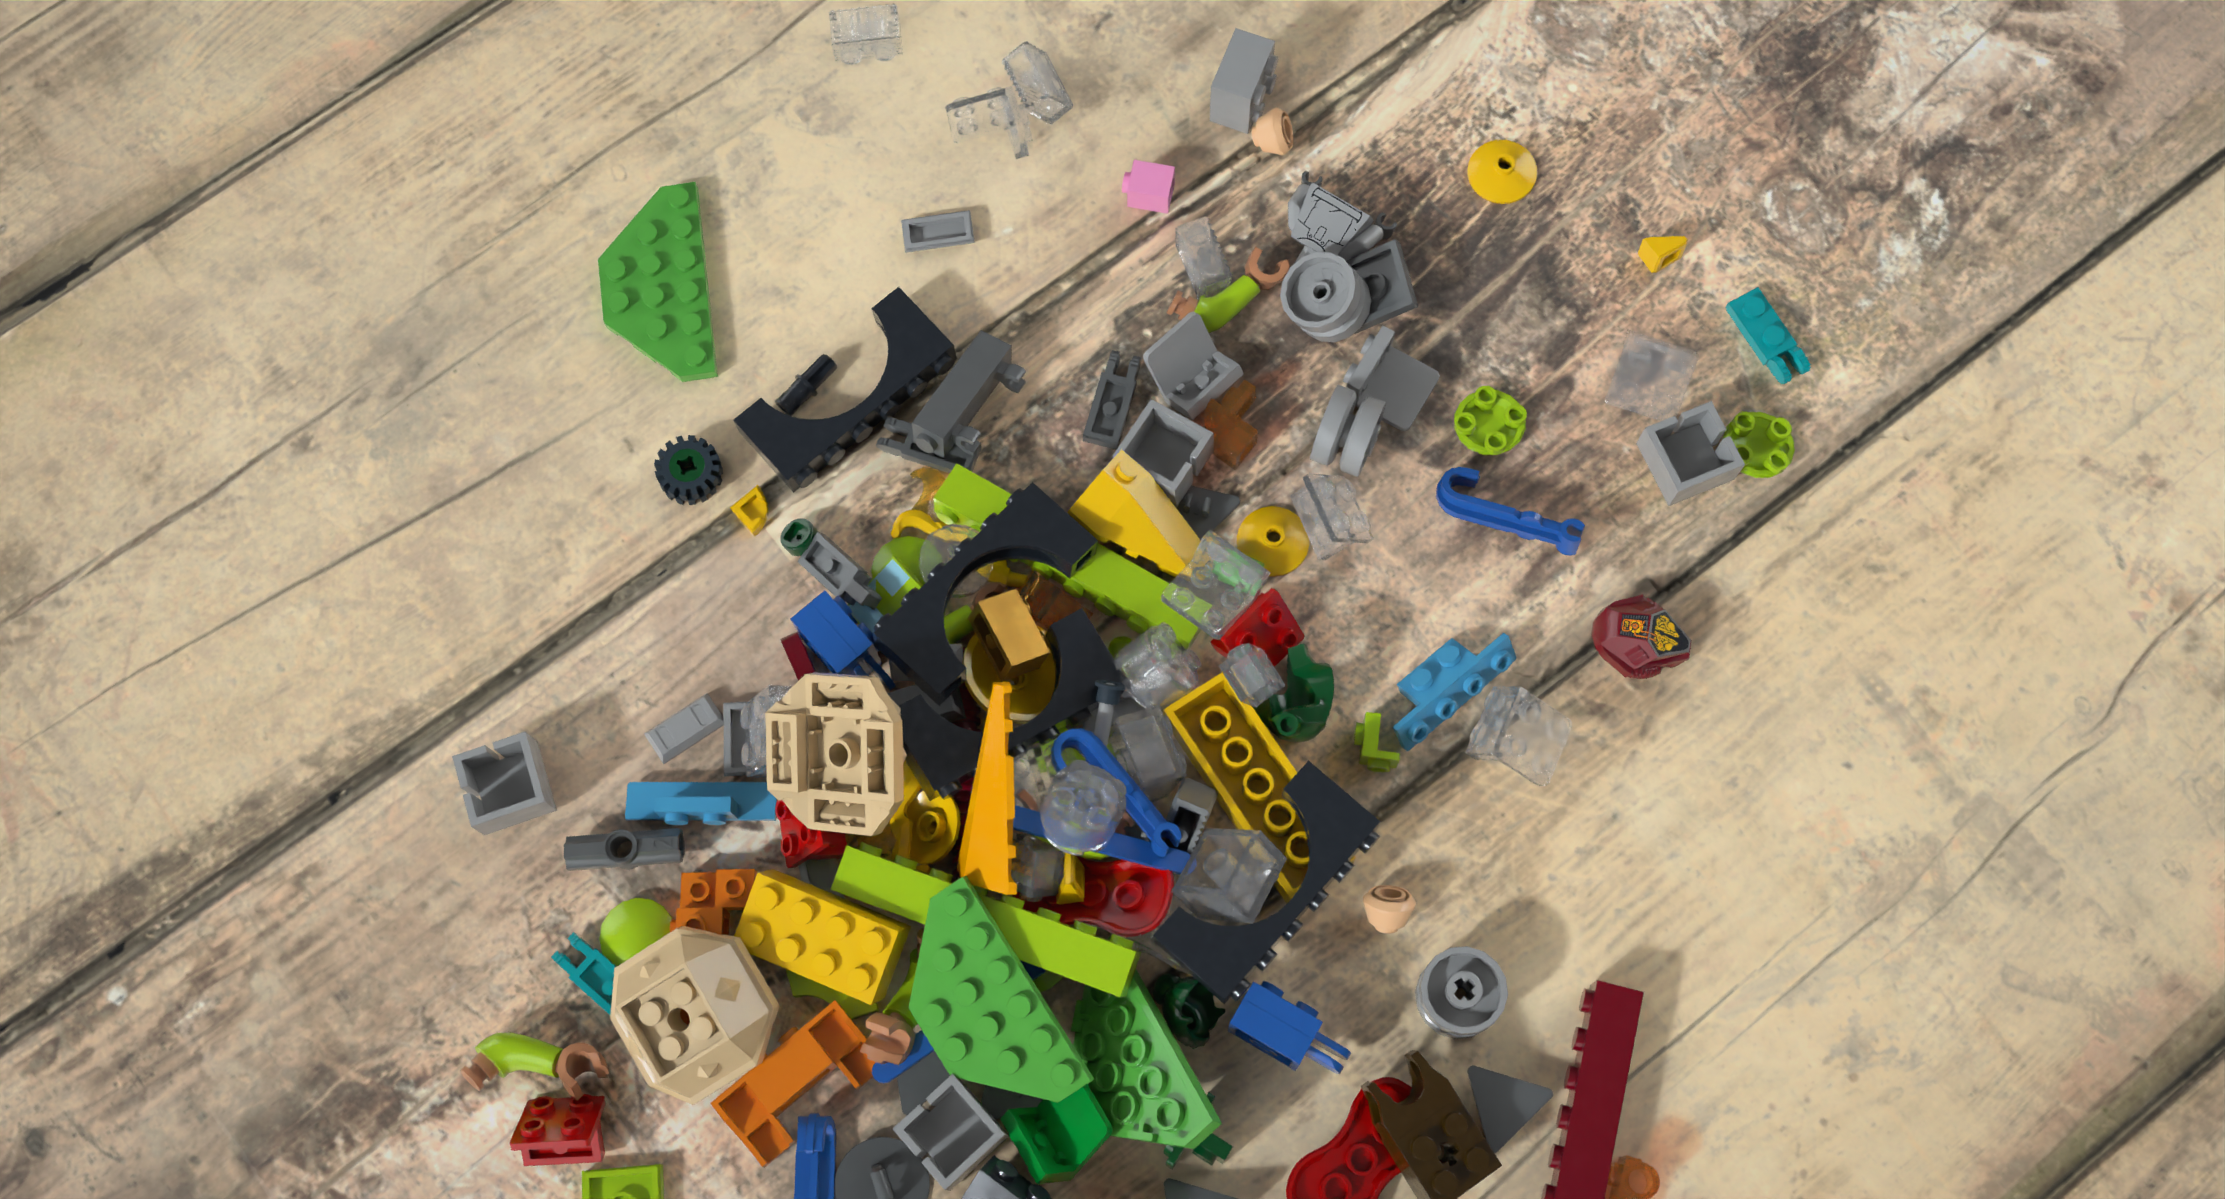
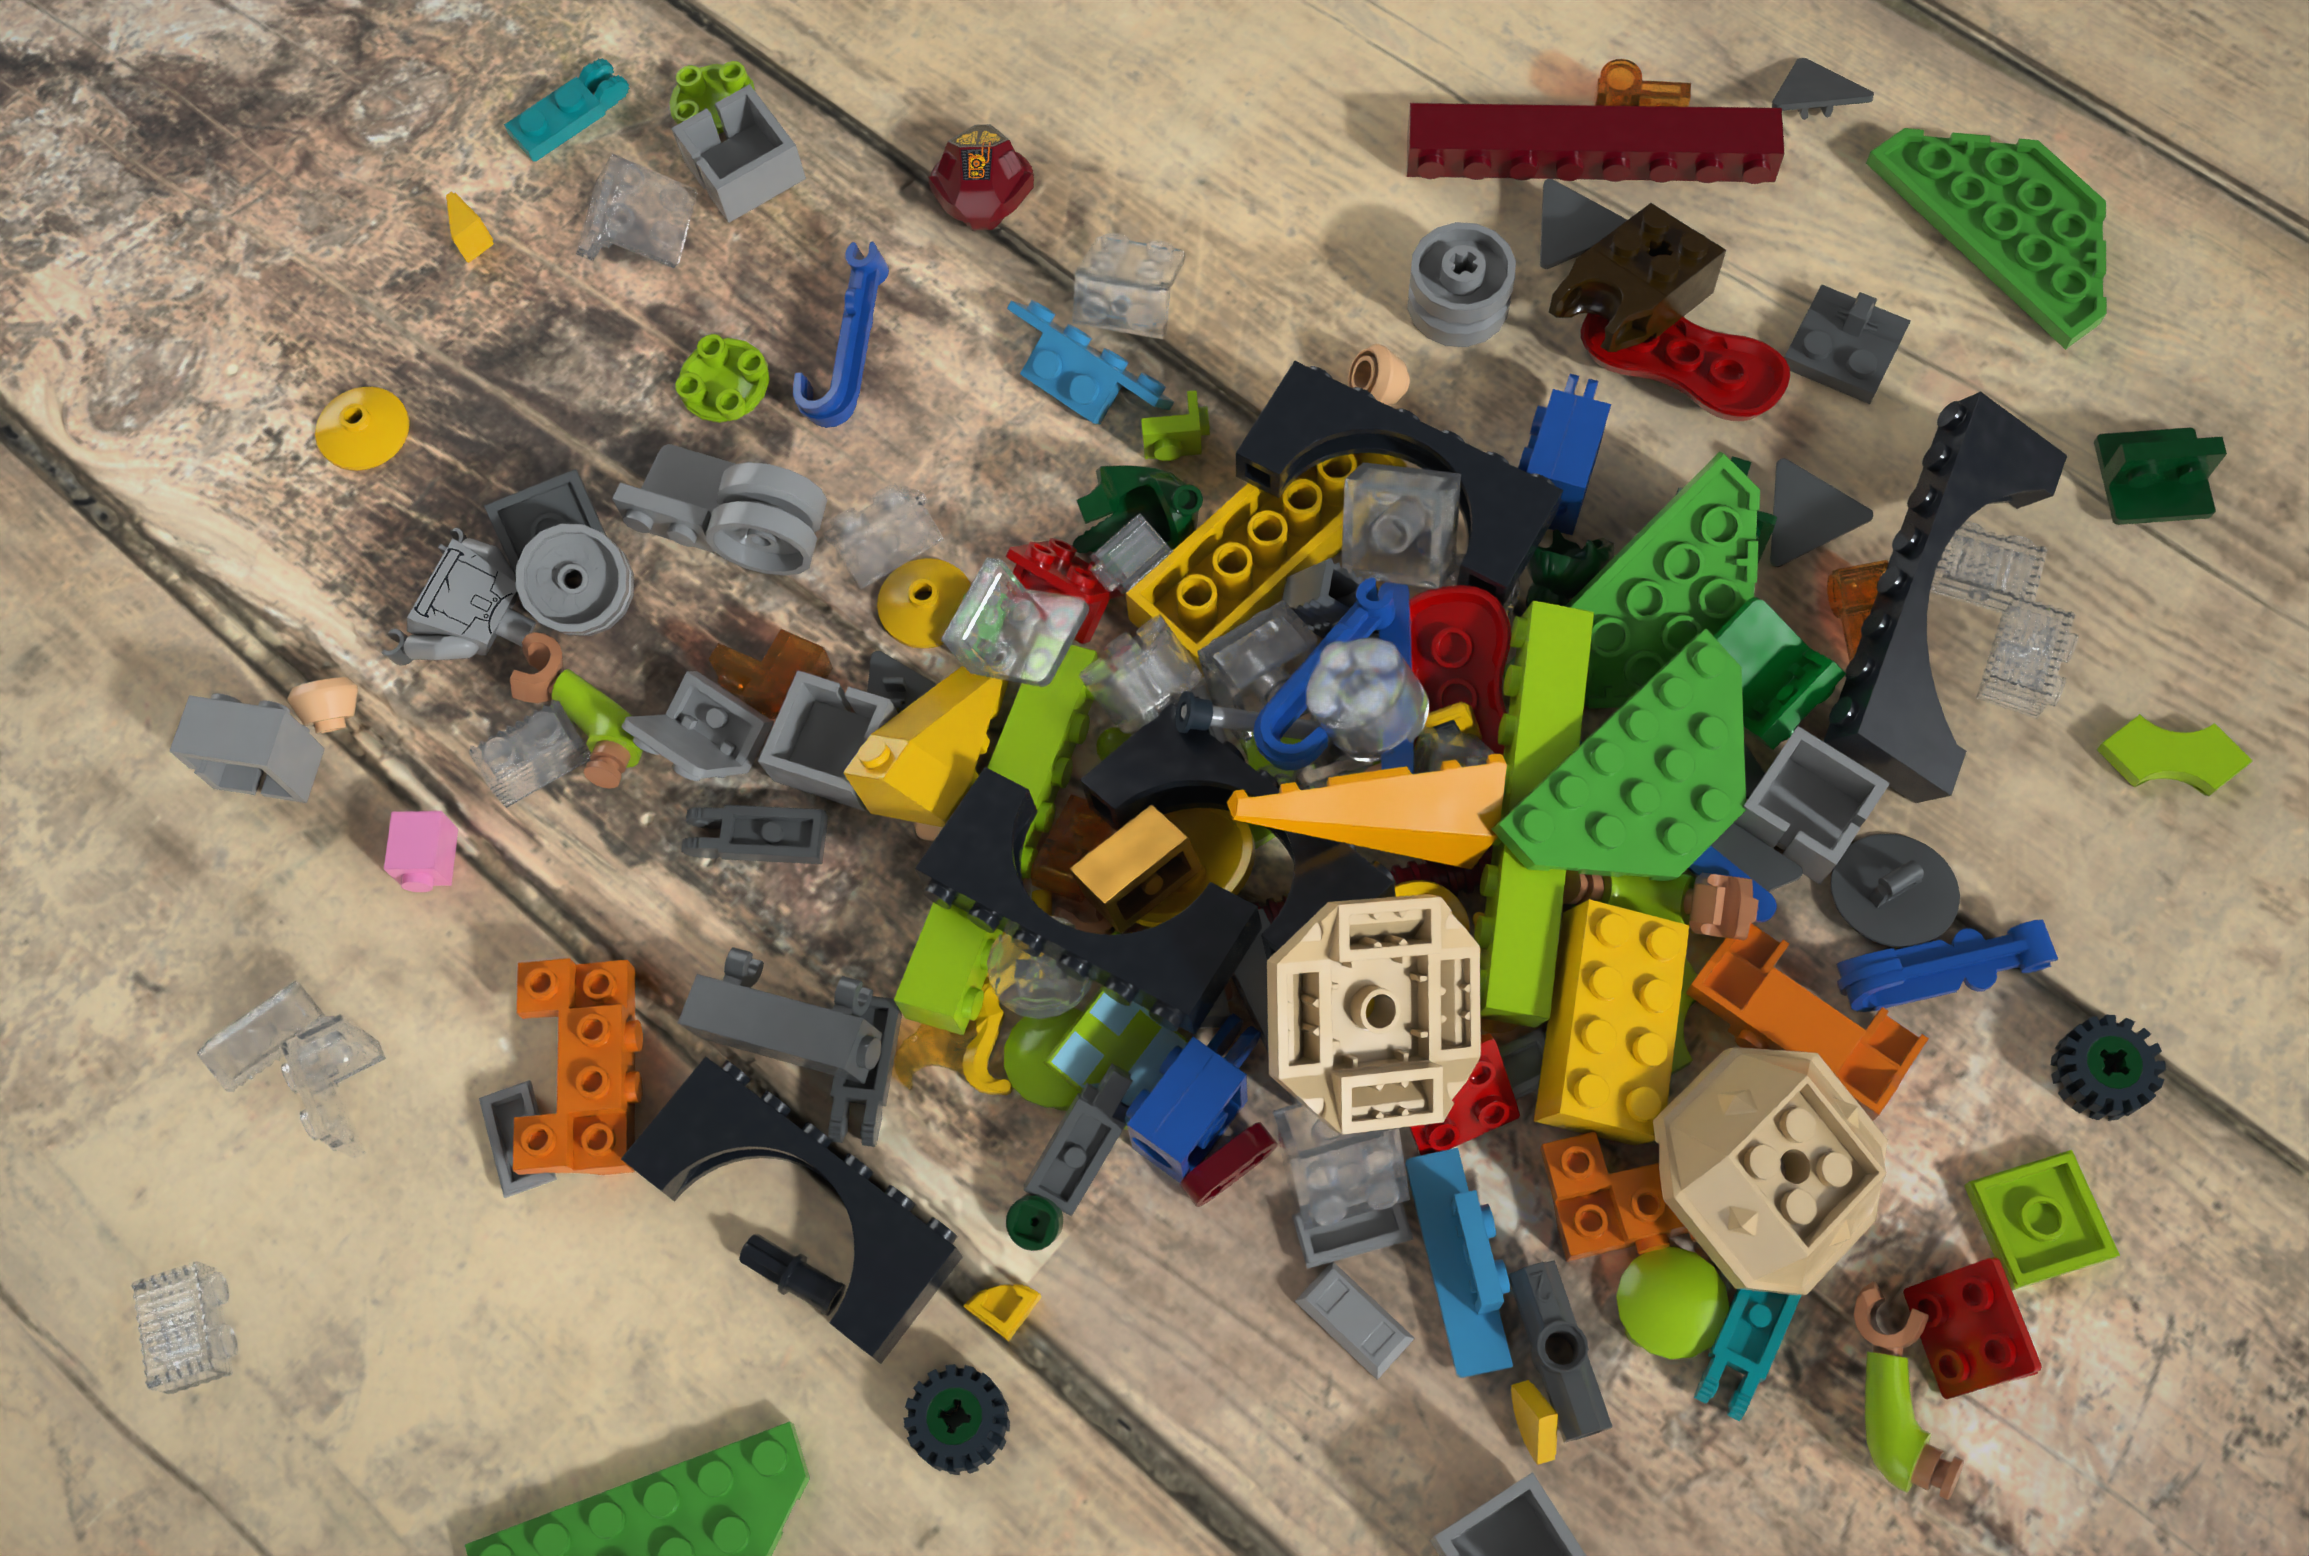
camera: 100 degrees left, 5 degrees down
(588, 824) = (1535, 1421): none -> yellow tile
(973, 280) = (594, 1067): none -> orange bracket

